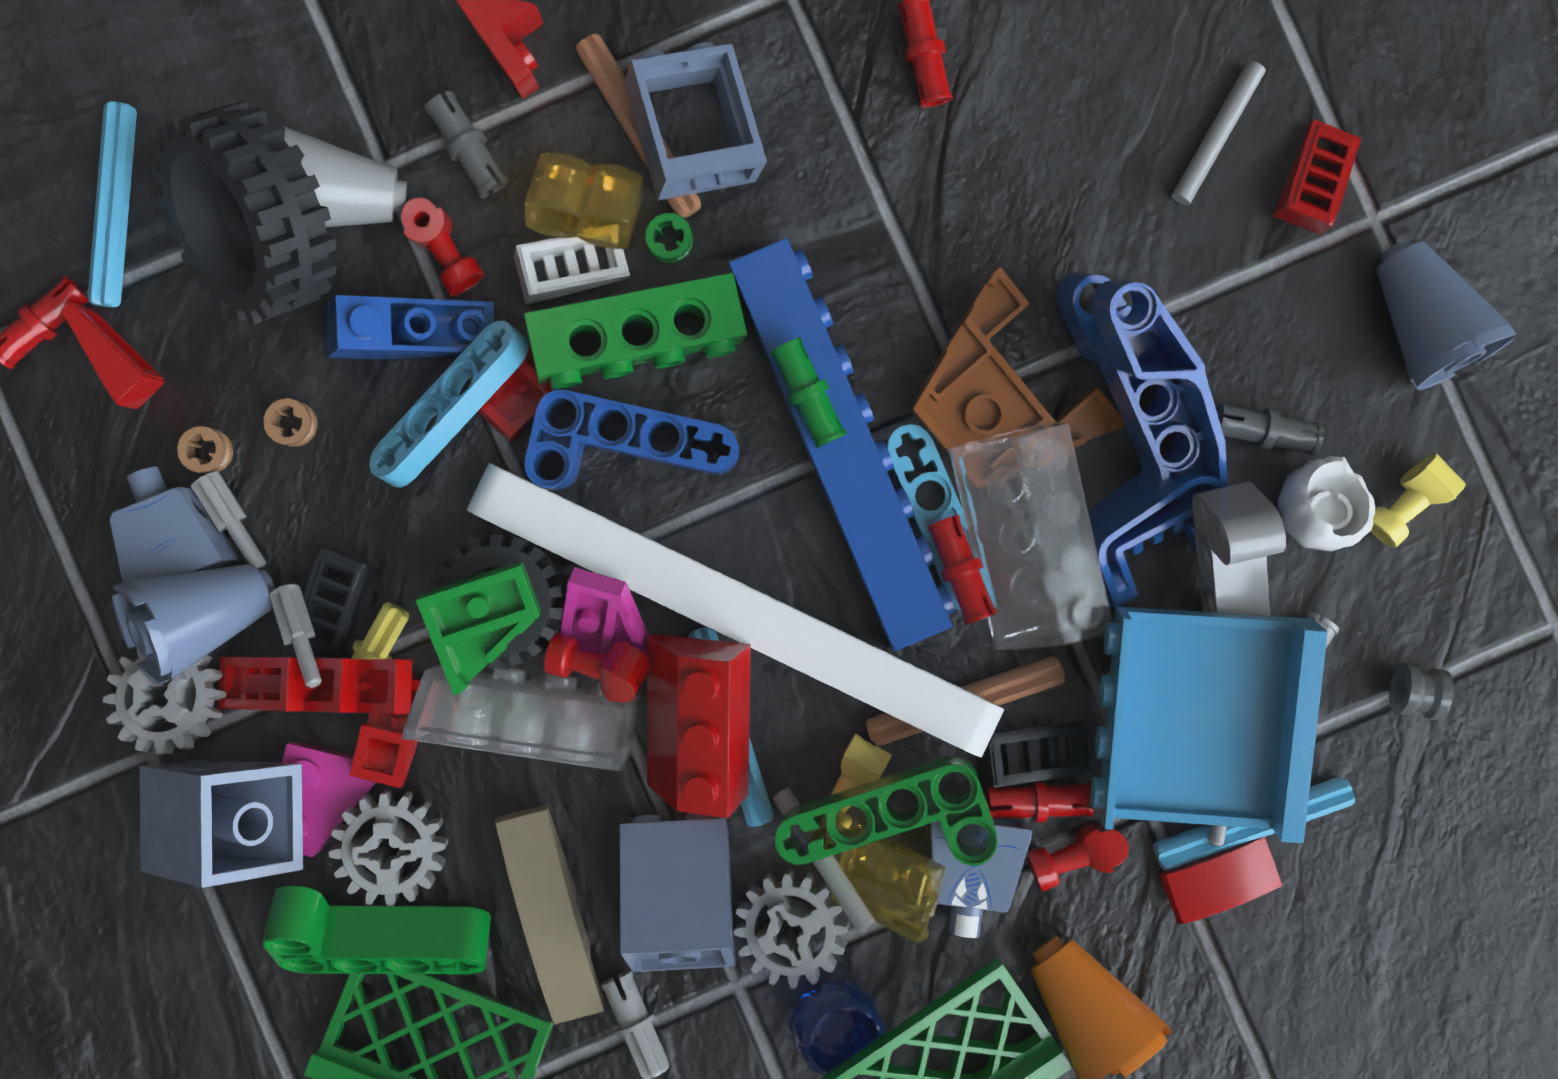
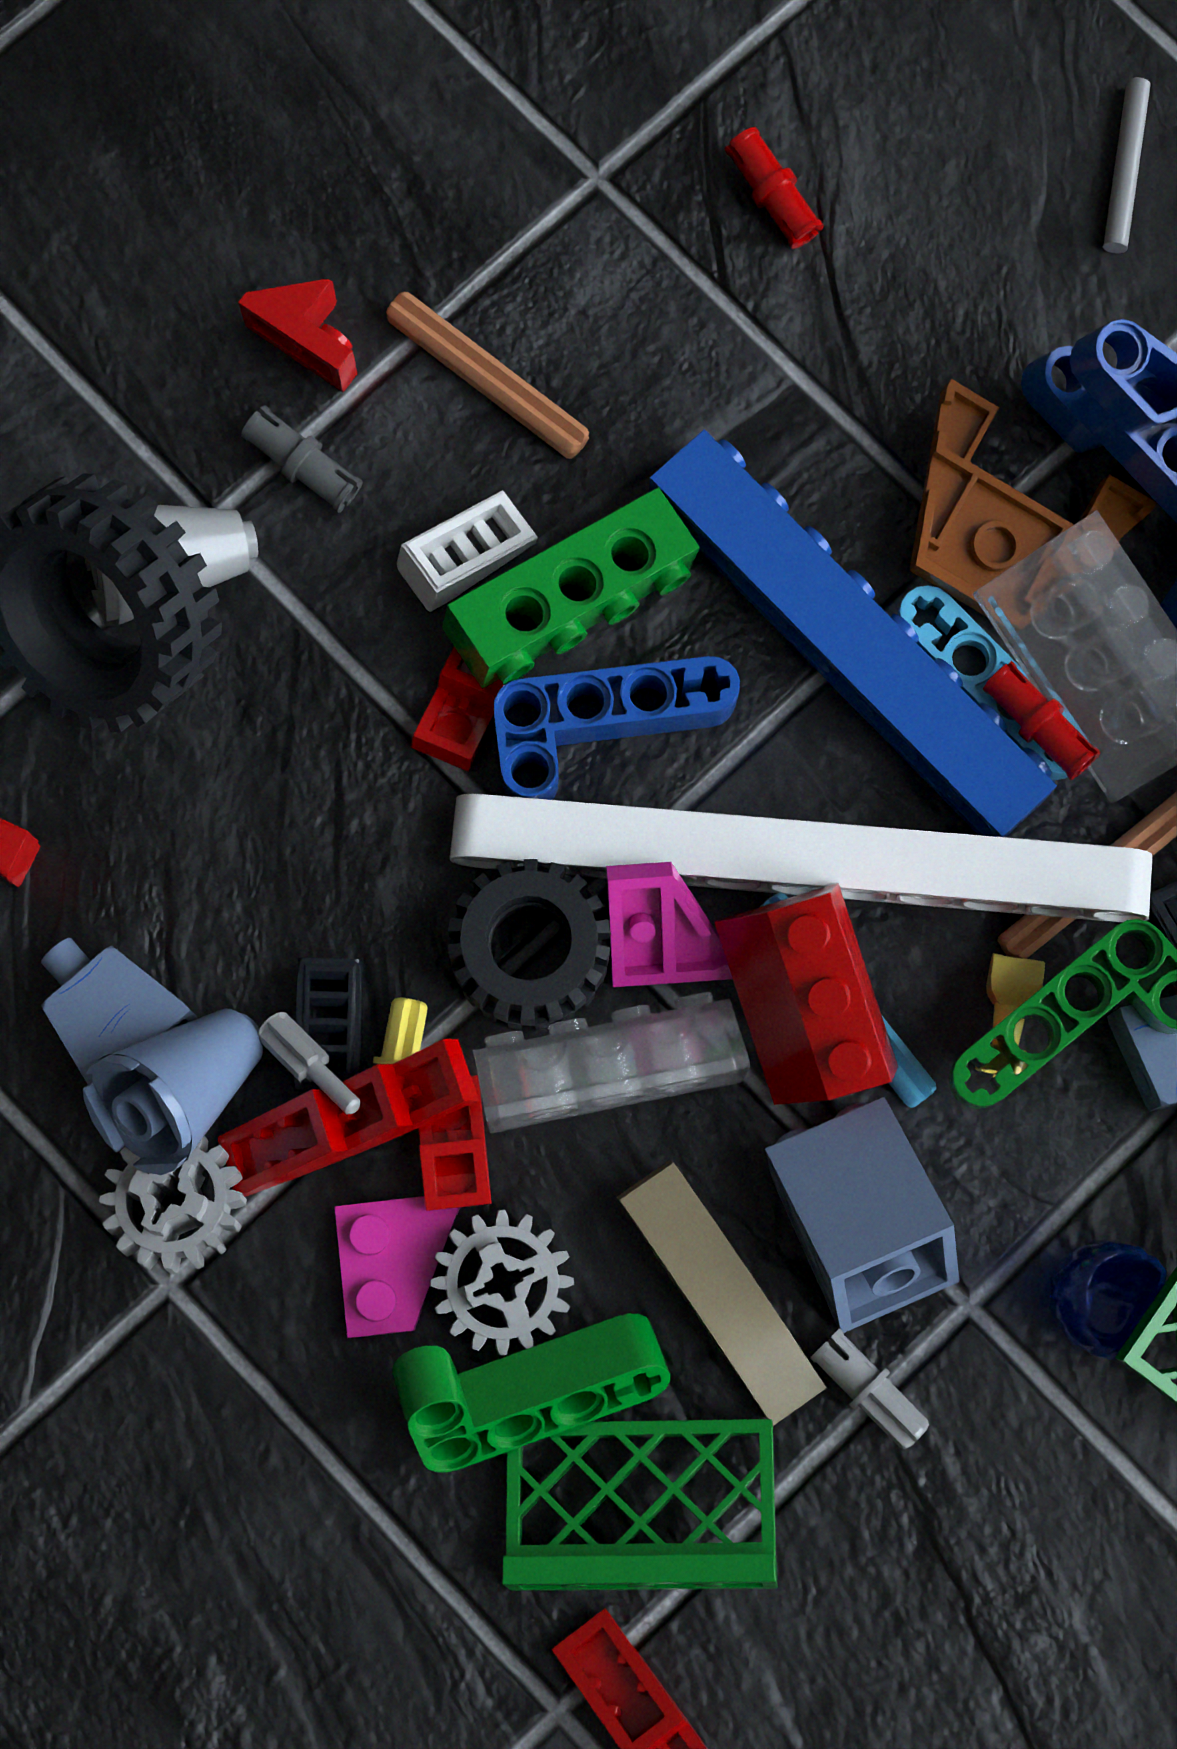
camera: 25 degrees left, 10 degrees down
(189, 442) = (123, 884): medium nougat bush -> none
(220, 820) = (291, 1313): sand blue slope -> none
(226, 514) = (168, 965): light grey axle -> none
(279, 434) = (220, 822): medium nougat bush -> none
(402, 326) = (305, 681): blue slope -> none
(431, 230) = (292, 564): red leg -> none
(477, 619) = (522, 958): green wing -> none
(500, 352) = (380, 745): medium azure beam -> none
(583, 200) = (460, 470): clear yellow brick -> none
(618, 670) = (698, 970): red leg -> none
(680, 227) = (573, 465): green bush -> none
(704, 170) = (578, 394): sand blue window -> none
(772, 938) = (1030, 1181): light grey gear -> none
(808, 392) = (796, 581): green pin -> none
(830, 871) = (1025, 1115): light grey bar -> none
(895, 885) = (1101, 1104): clear yellow plate -> none

